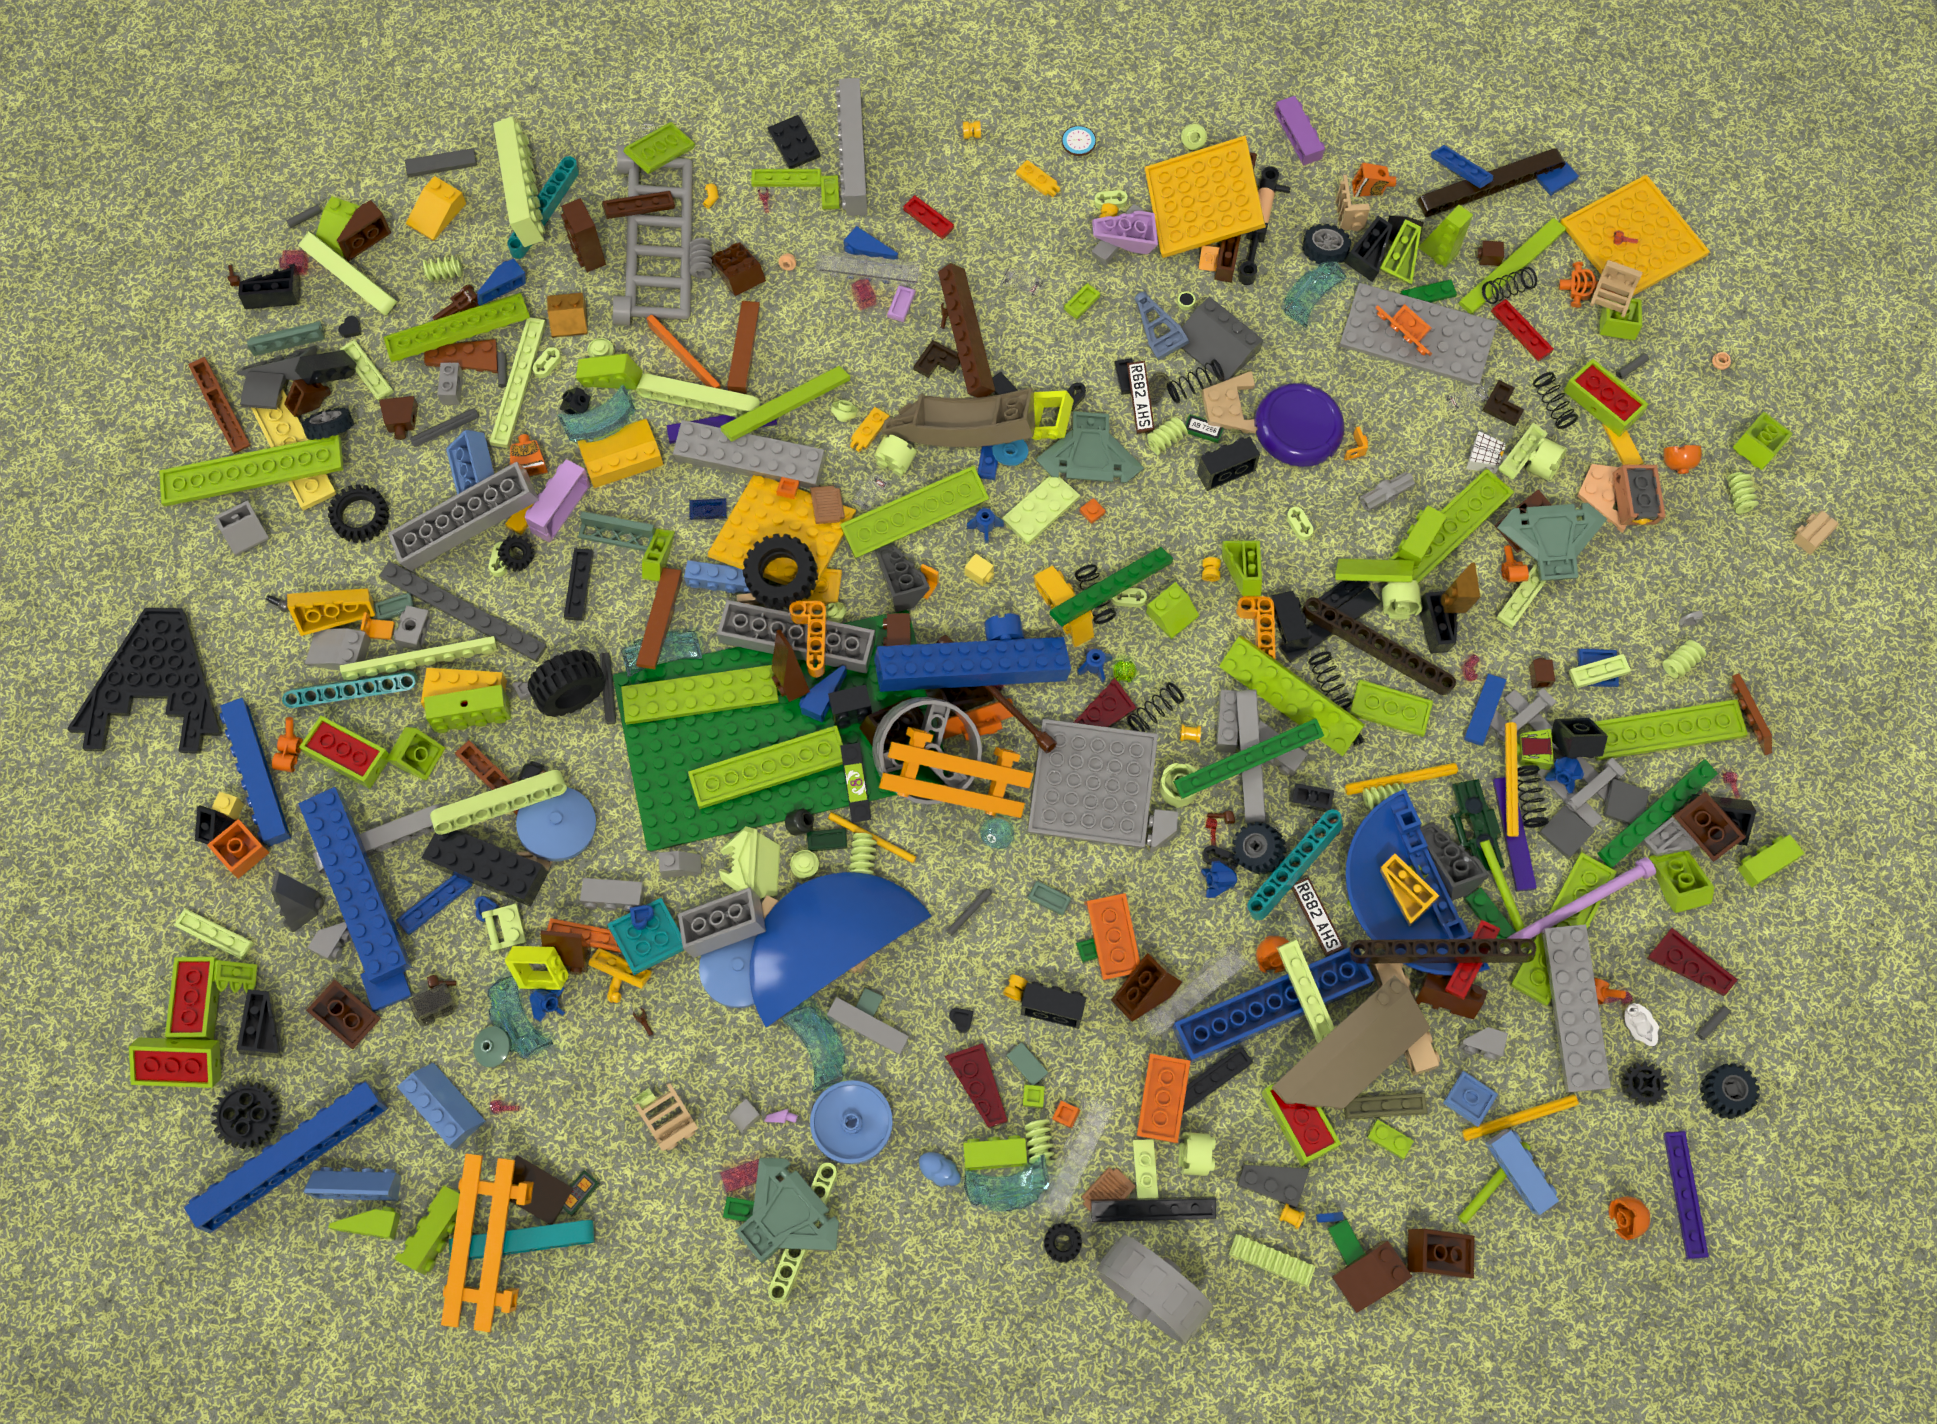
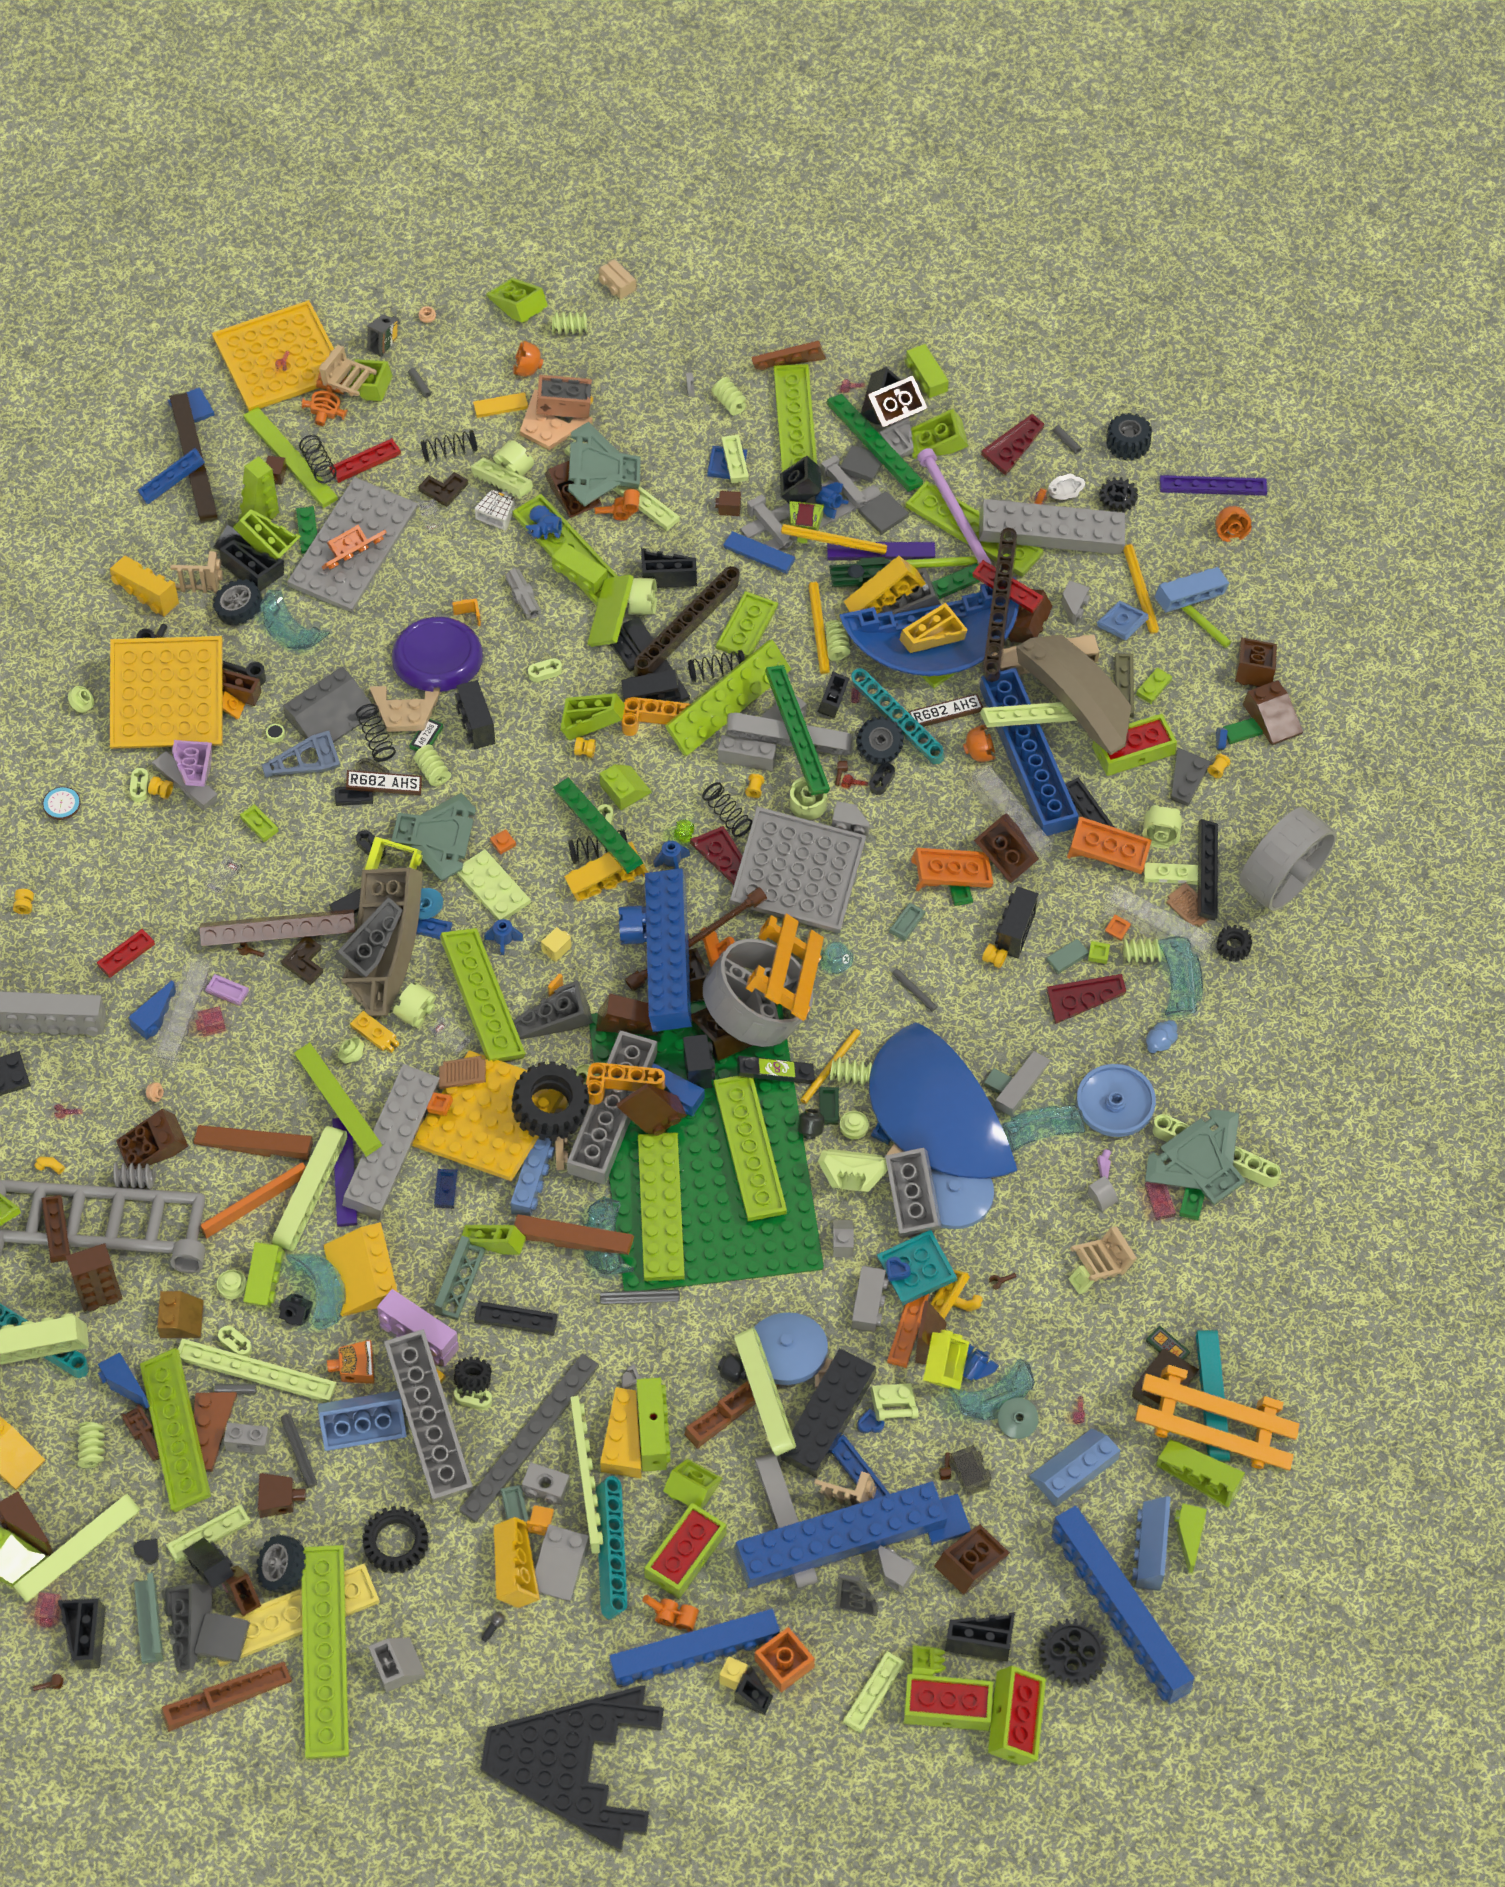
camera: 85 degrees left, 10 degrees down
(395, 899) = (864, 1490): none -> tan plate
(566, 683) = (642, 1317): black tyre -> none
(786, 178) = (42, 1088): lime tile -> none
(830, 192) = (72, 1044): lime plate -> none
(953, 404) = (366, 946): none -> dark grey wedge
(962, 1019) = (1020, 1005): black tile -> none
(995, 1153) = (1150, 987): lime brick -> none
(1037, 179) = (98, 848): yellow hinge -> none
(1219, 879) = (904, 779): blue brick -> none
(1272, 1260) = (1256, 787): yellowish green gear -> none
(1299, 130) = (93, 607): medium lavender brick -> none
(1330, 166) = (145, 585): none -> yellow wedge
(1372, 180) = (170, 545): orange torso -> none
(1453, 835) = (886, 586): none -> yellow wedge
(1463, 592) = (647, 539): pearl gold slope -> none
(1468, 668) = (715, 559): clear pink arm -> none
(1475, 499) = (546, 522): none -> blue animal
(1543, 820) = (873, 531): black piece -> none
(1606, 397) = (454, 405): brick -> none
(1683, 321) = (382, 334): none -> dark grey torso

